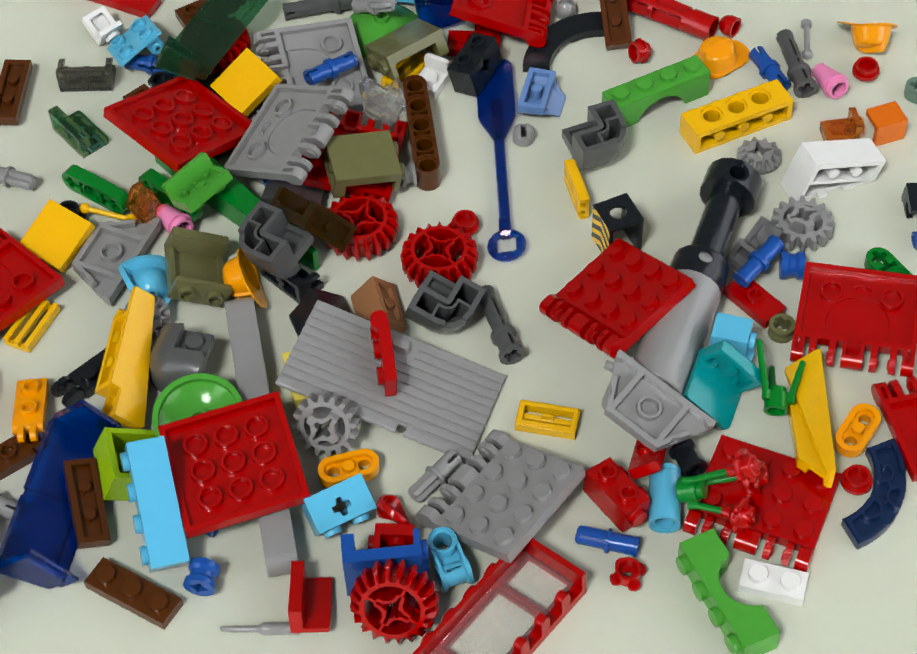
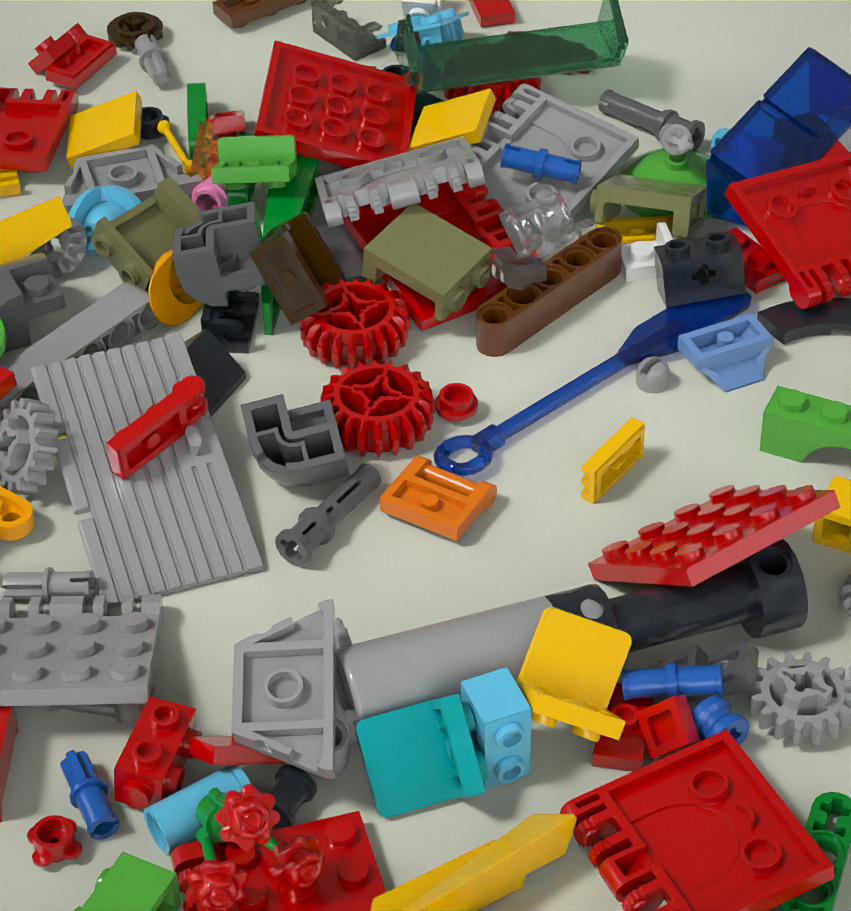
camera: 50 degrees right, 10 degrees down
(77, 131) = (255, 62): clear green panel -> none
(124, 175) = (227, 123): none -> red plate
(378, 295) = (265, 385): medium nougat panel -> none
(410, 174) = (467, 314): light grey bush -> none
(412, 130) = (517, 270): none -> clear smoke plate
(533, 279) = (436, 498): none -> orange plate
(547, 423) = (211, 638): yellow tile -> none
(598, 138) = (704, 430): dark grey brick -> none
(605, 225) = (601, 513): black piece -> none
(617, 297) = (453, 576): red hinge -> none
(688, 182) = (712, 535): none -> red plate
(730, 292) = (574, 673): none -> yellow bracket
(775, 396) = (467, 830): green plant -> none
(780, 282) = (668, 727): none -> red plate
(785, 322) = (602, 765): olive bush -> none

